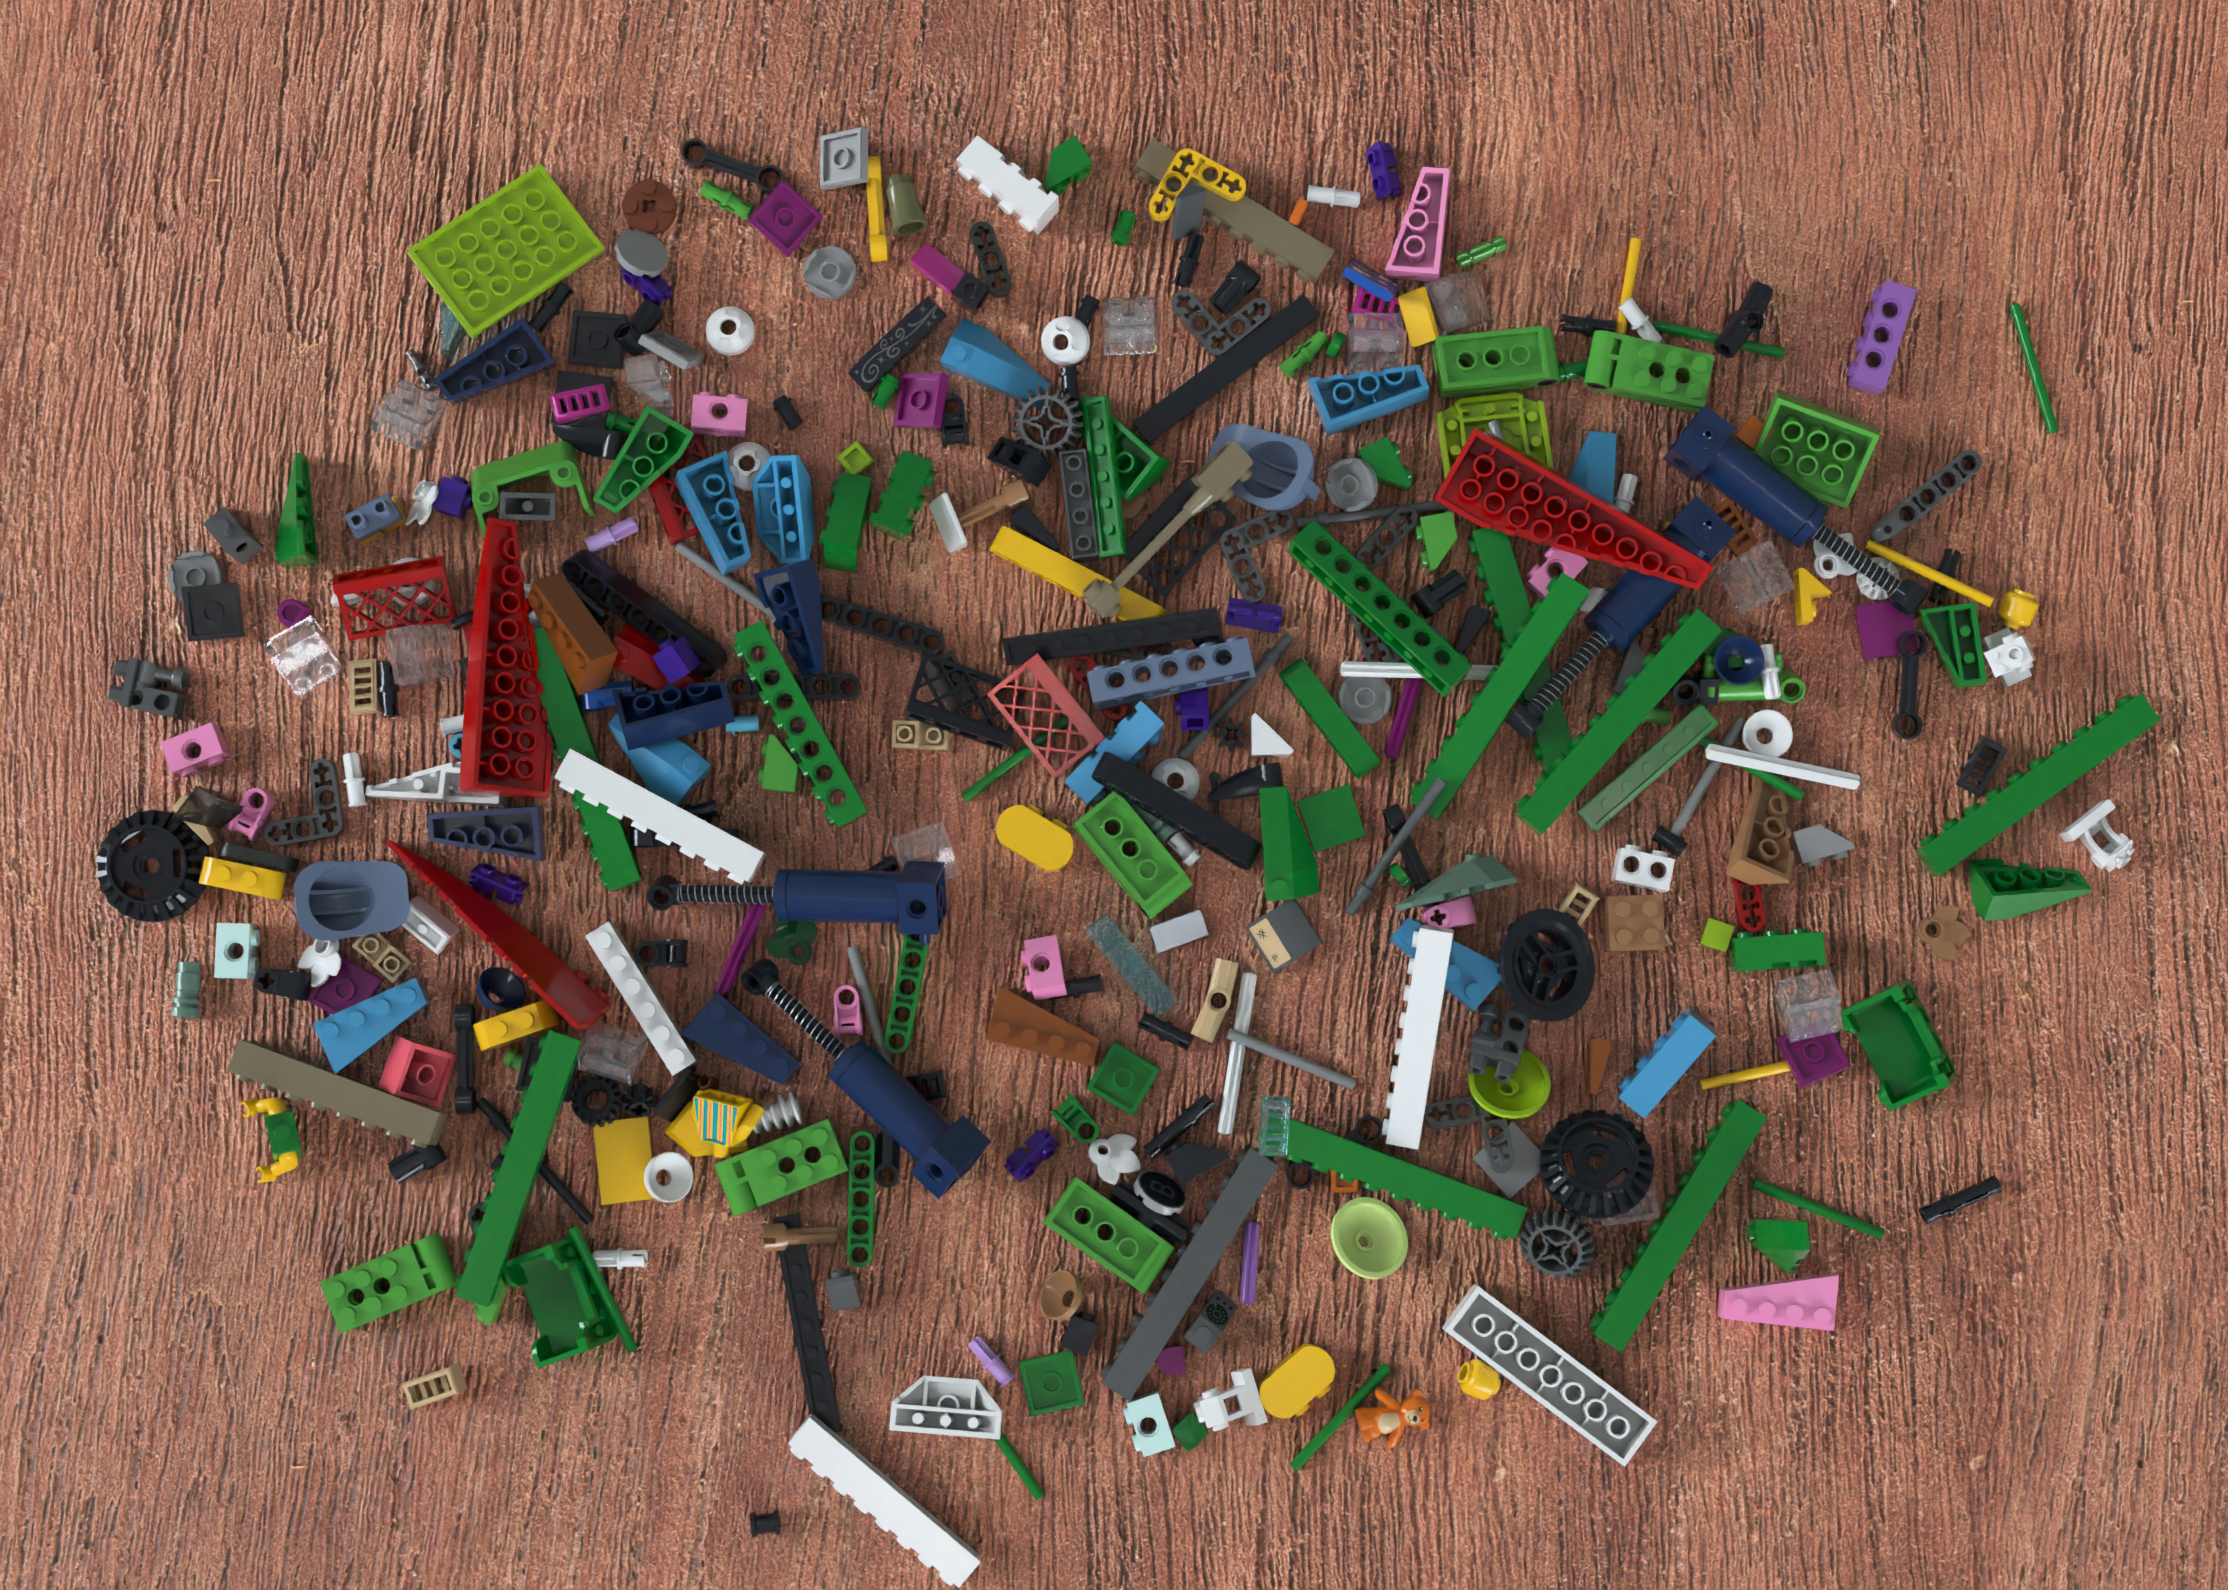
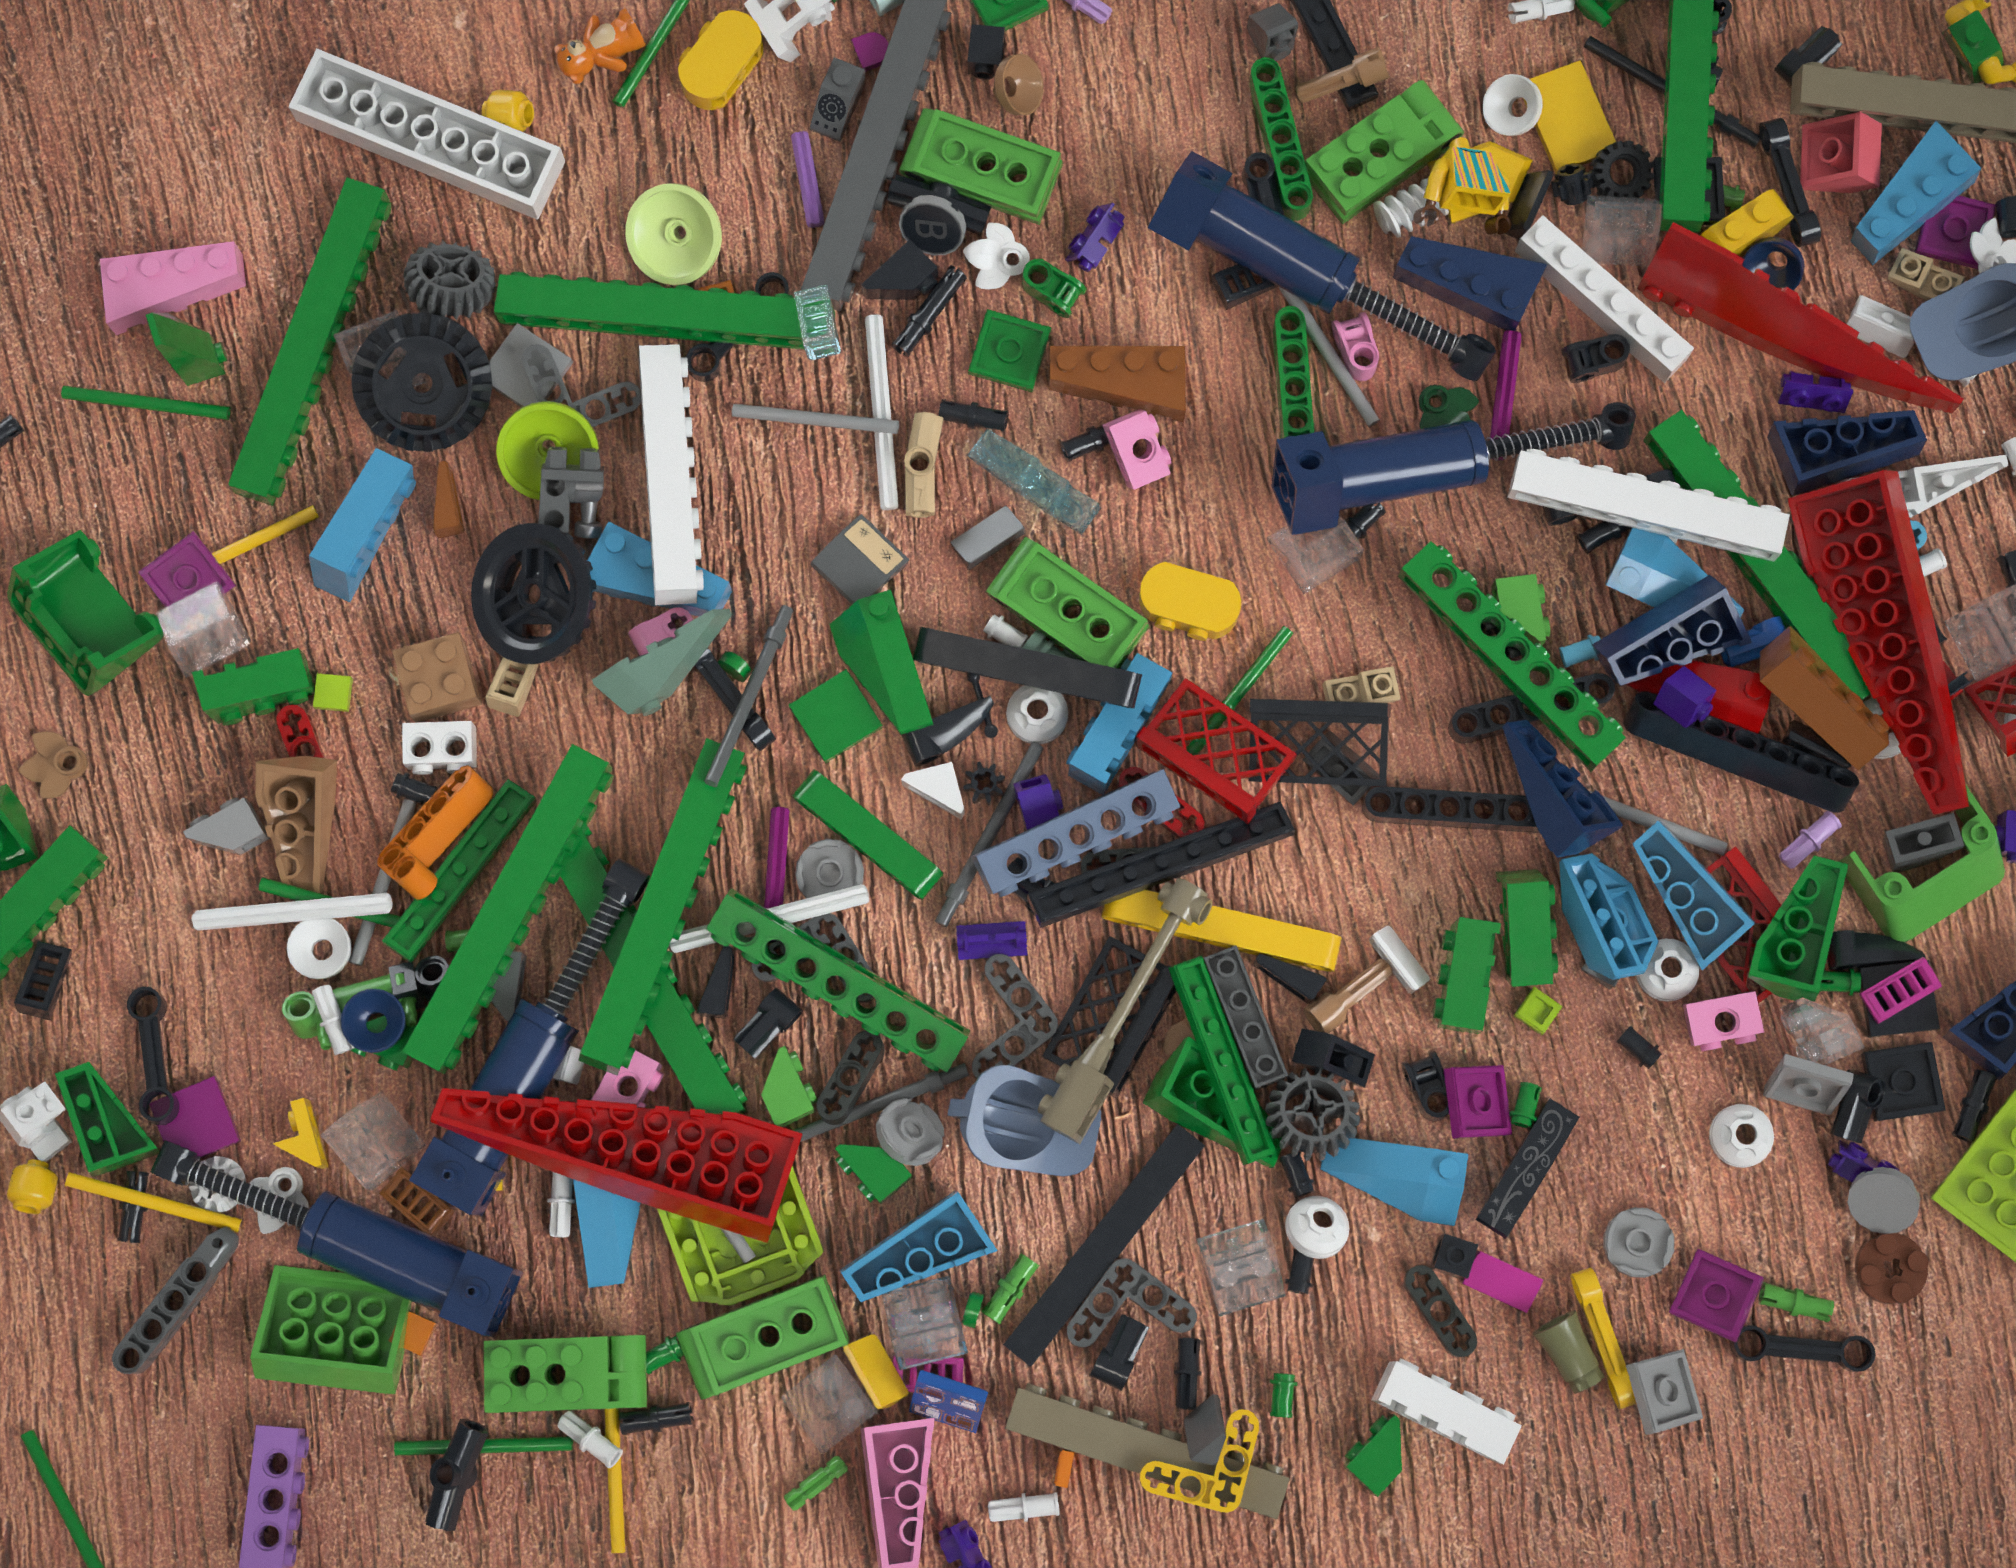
camera: 170 degrees right, 5 degrees down
(1663, 802) = (433, 830): none -> orange beam

